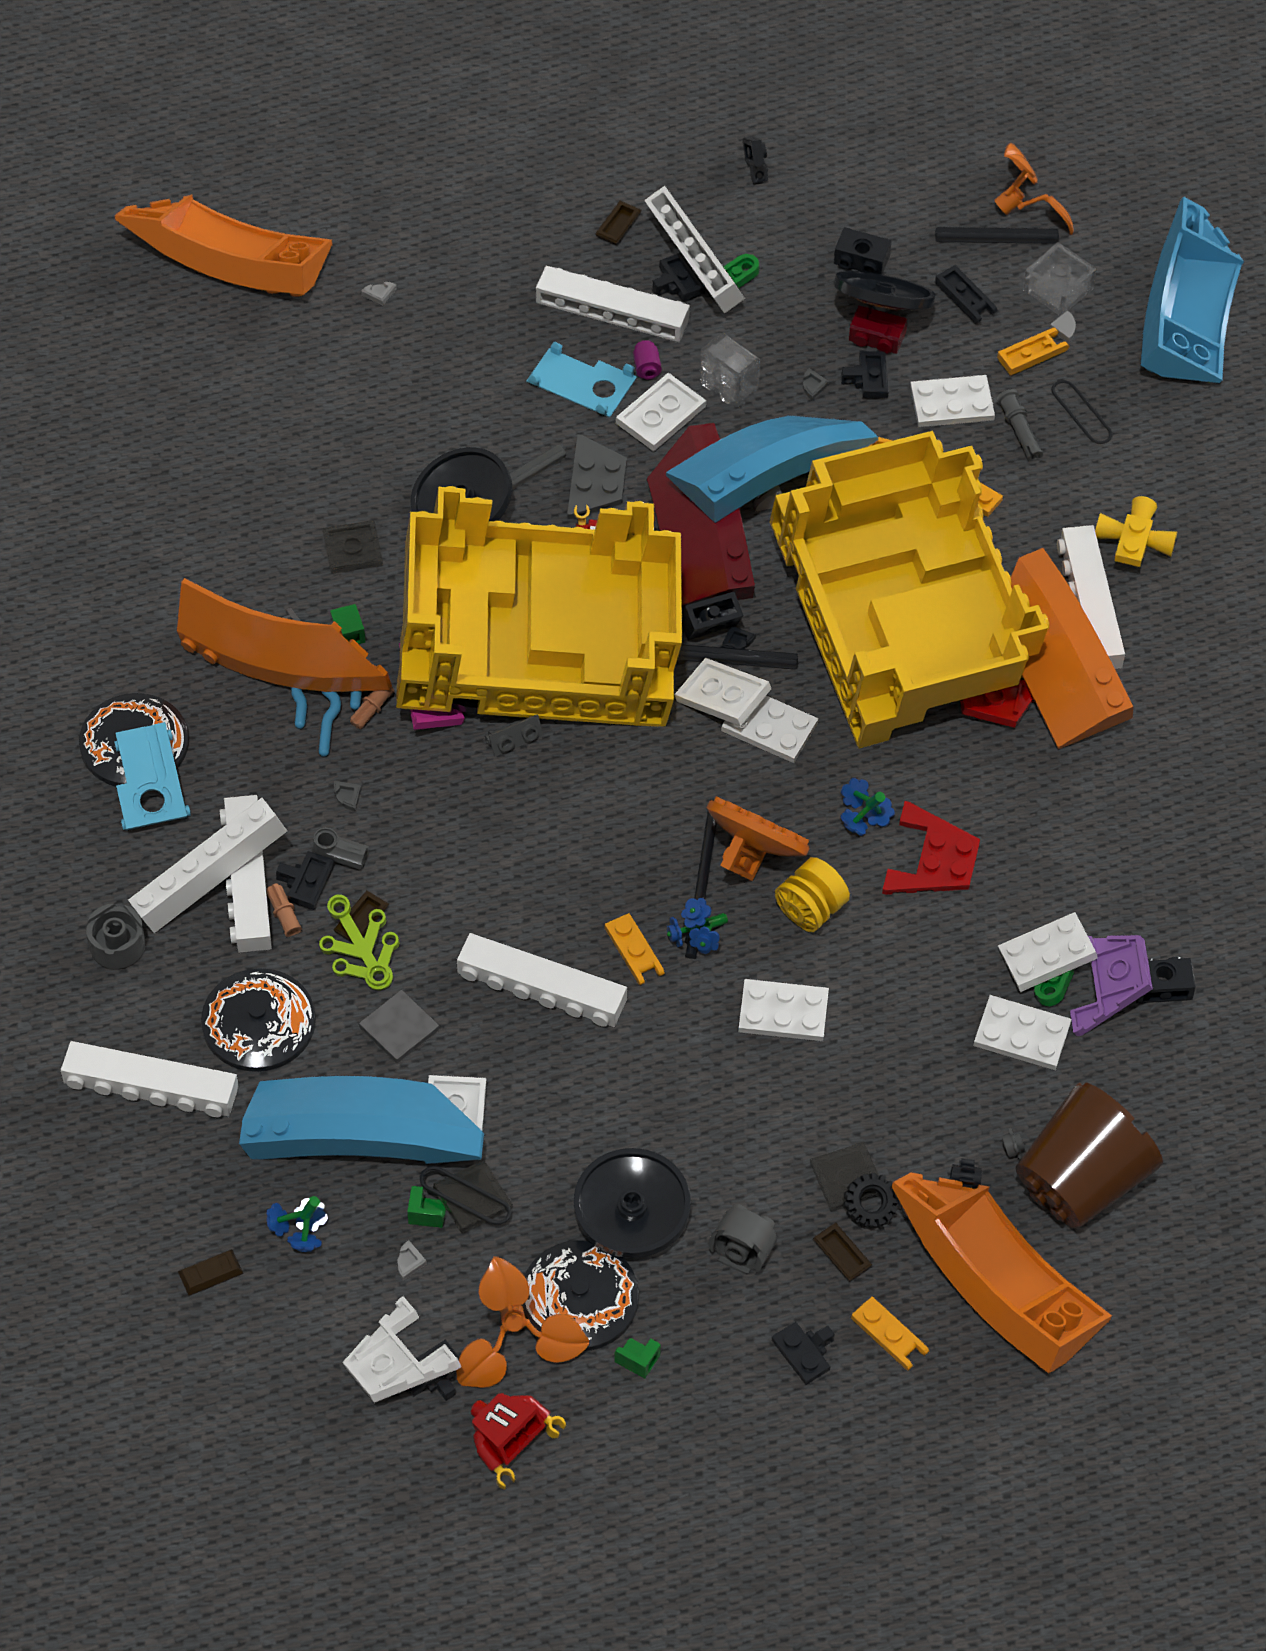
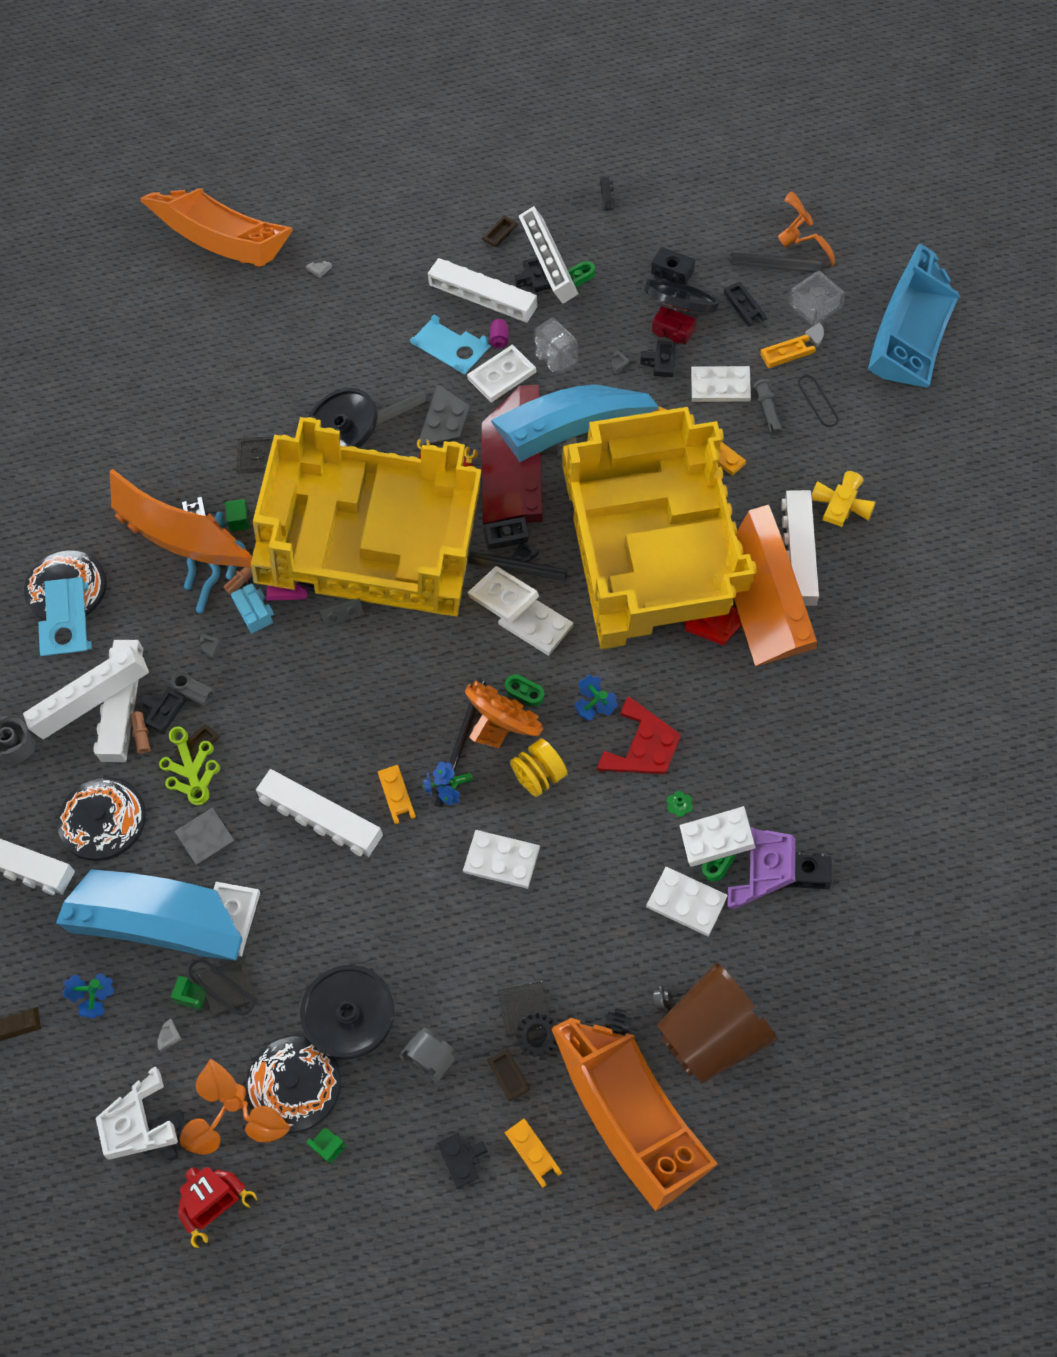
camera: 15 degrees right, 5 degrees up
(395, 741) = (252, 608): none -> medium azure brick
(773, 806) = (525, 690): none -> green plate
(992, 922) = (677, 807): none -> green plant

